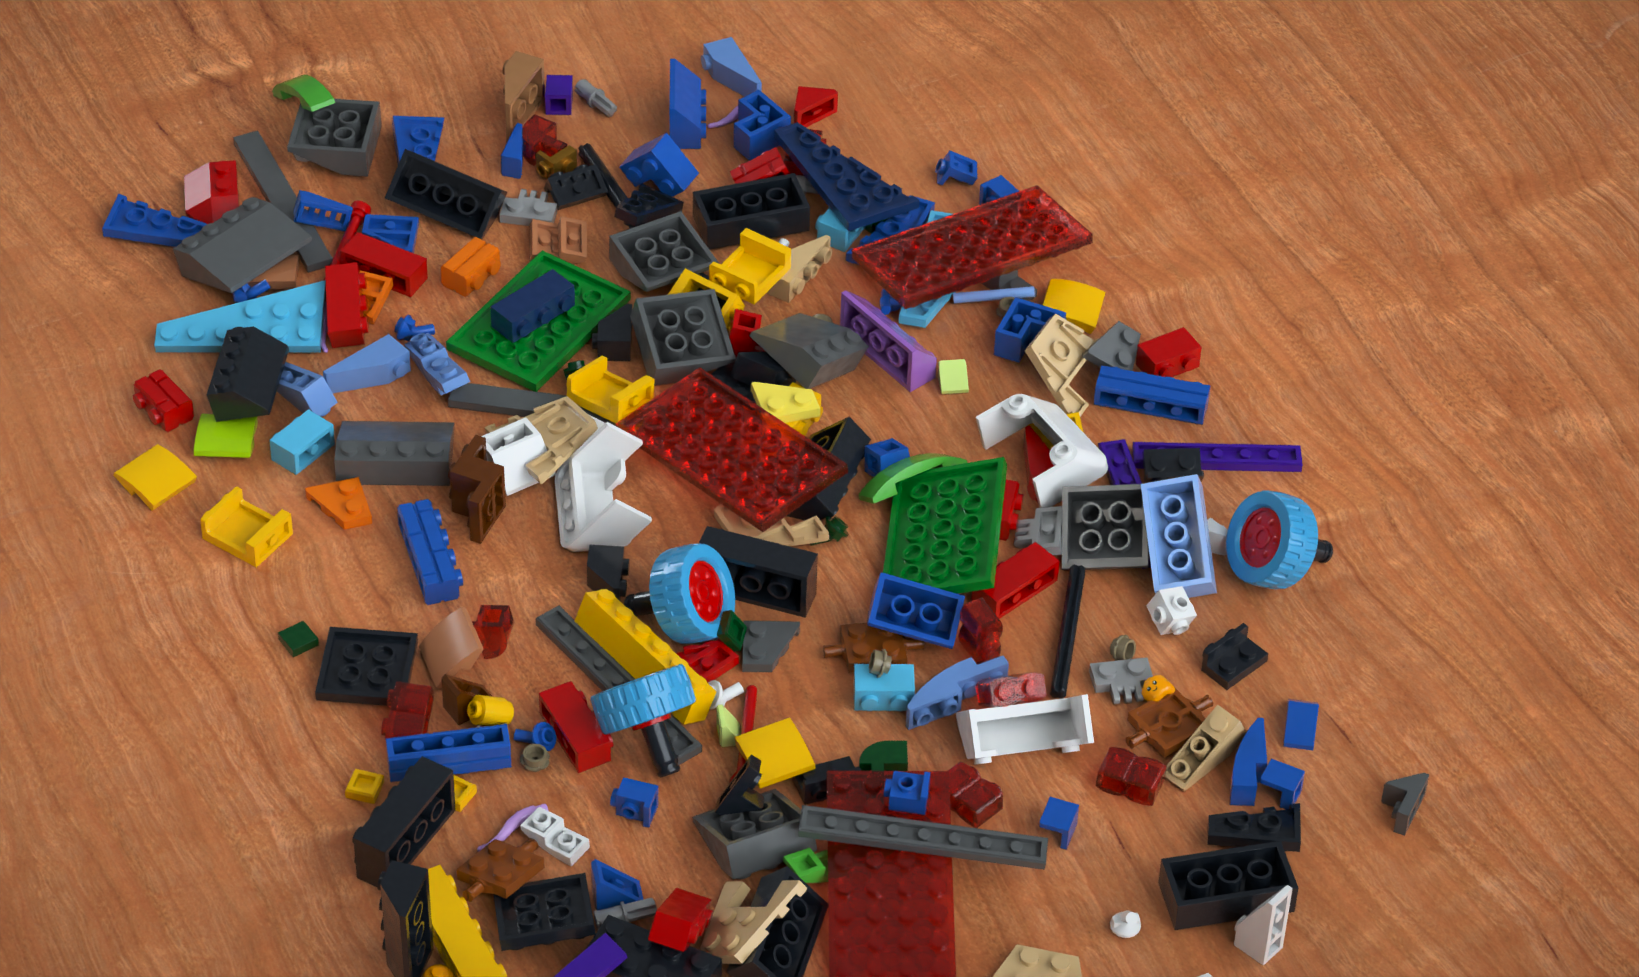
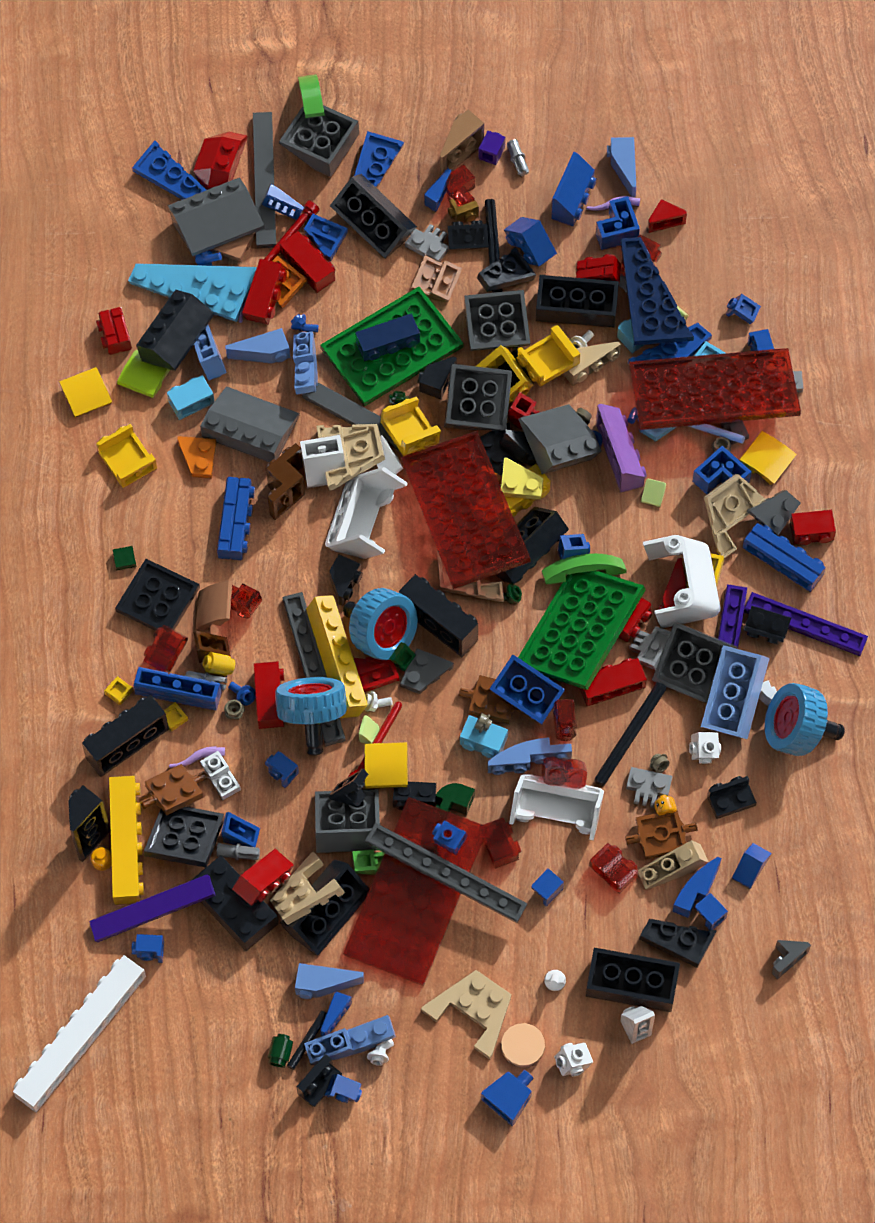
camera: 25 degrees right, 20 degrees up
(470, 267) = (365, 283): orange brick -> none

